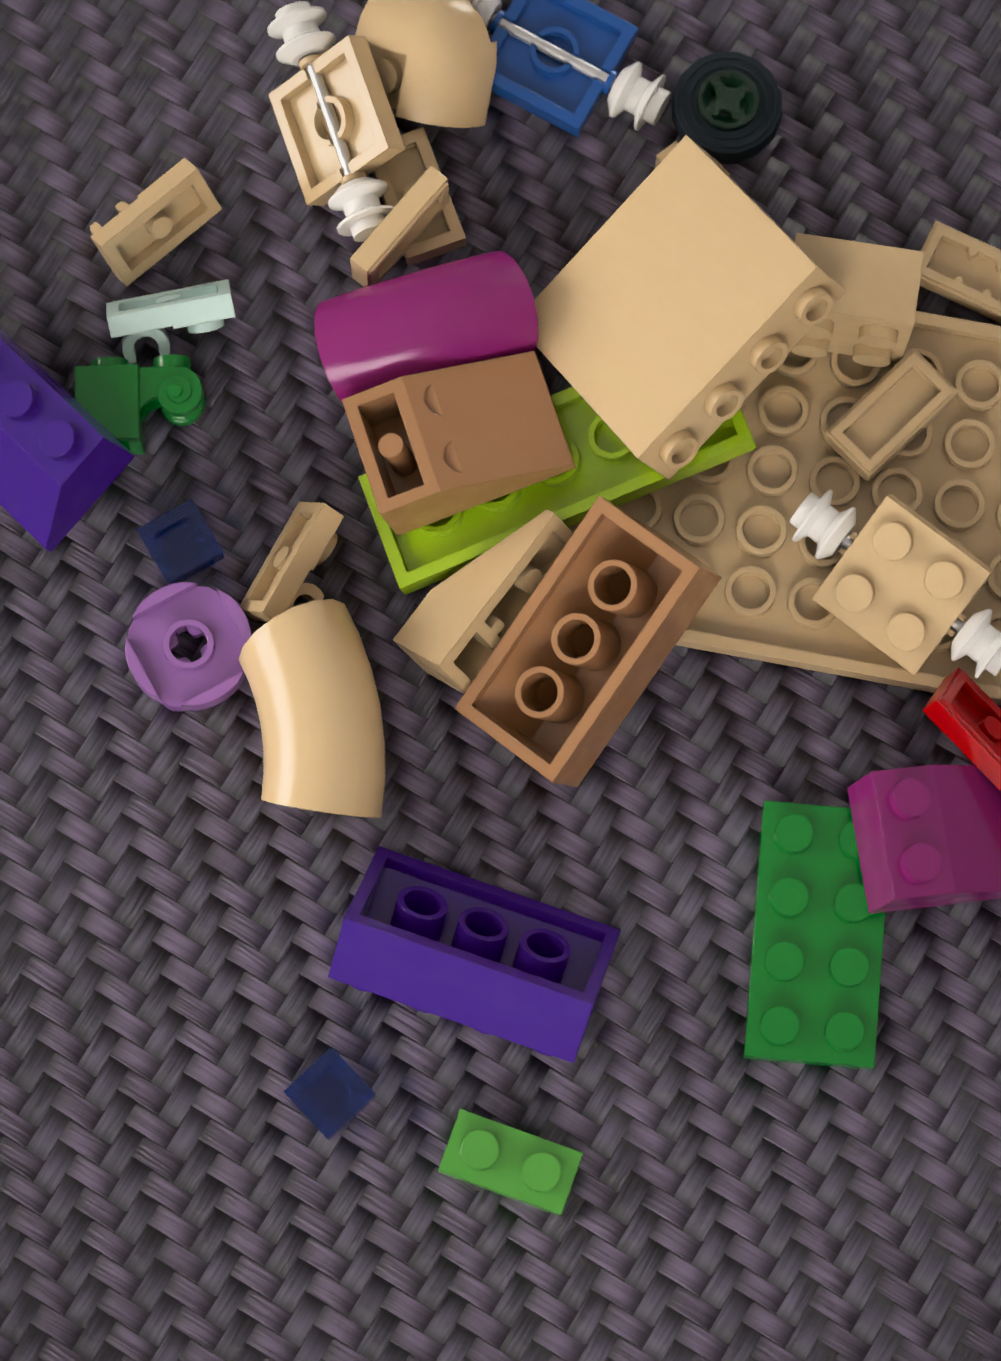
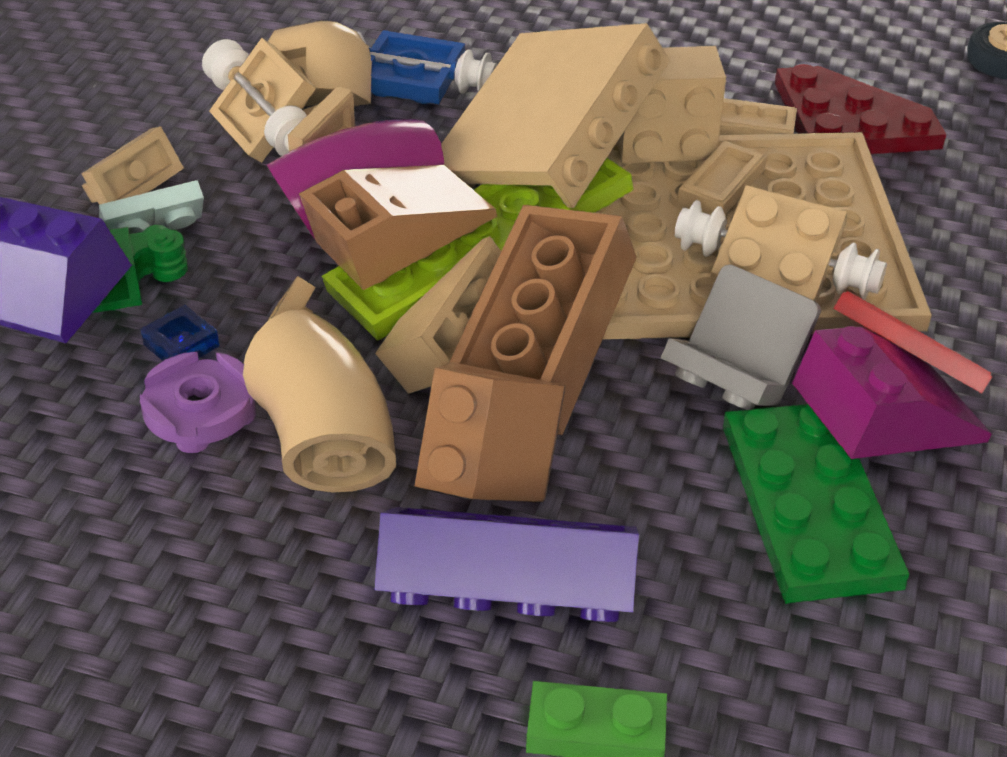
camera: 15 degrees left, 35 degrees down
(330, 1094) = (398, 694): clear blue plate -> none
(484, 808) = (489, 434): none -> medium nougat slope
(809, 718) = (746, 339): none -> light grey bracket

